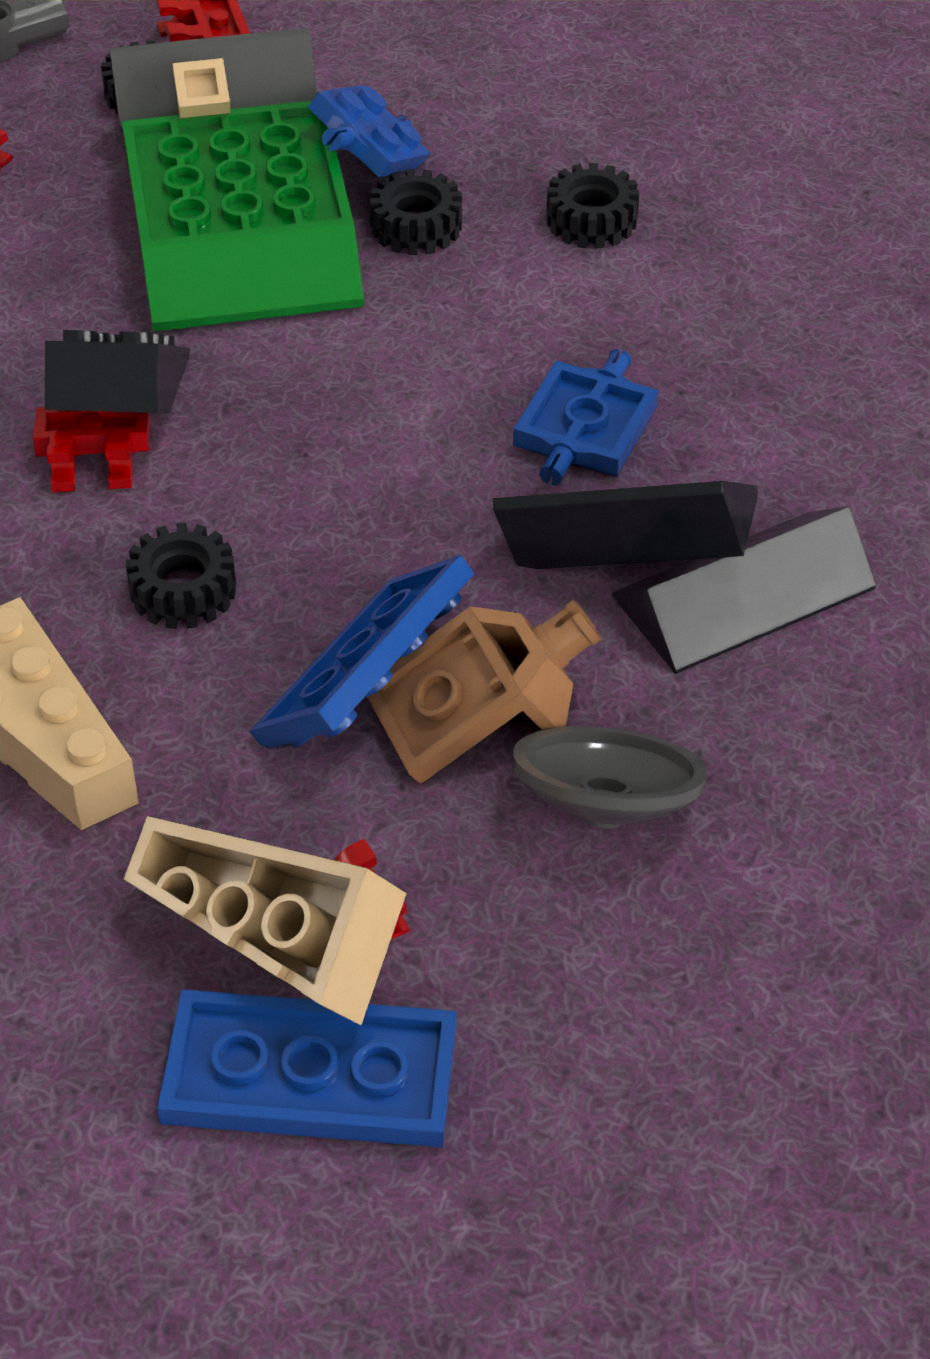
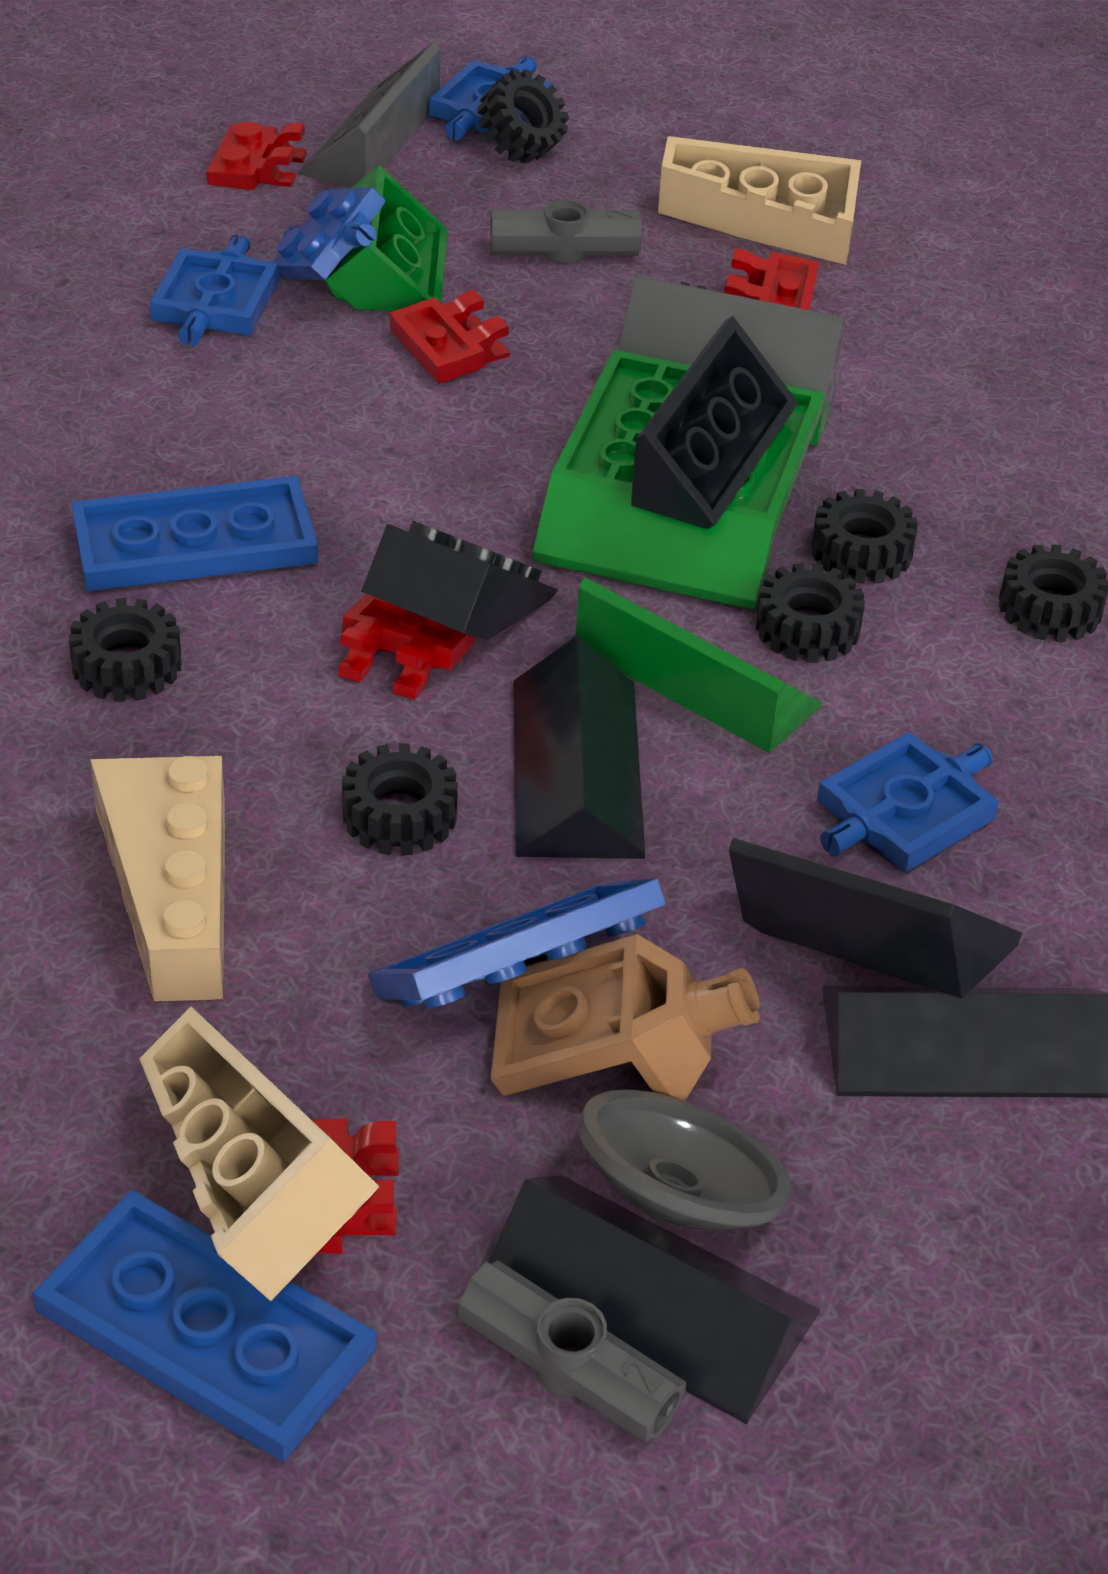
camera: 25 degrees right, 5 degrees down
(201, 88) = (693, 335): tan tile -> none
(264, 166) = (710, 431): none -> black slope
(300, 485) = (577, 758): none -> black slope
(345, 374) = (690, 669): none -> green slope
(364, 127) = (857, 439): blue plate -> none
(413, 311) = (809, 633): none -> black tyre
(579, 950) = (602, 1374): none -> dark grey piece
(637, 889) = (657, 1291): none -> black slope

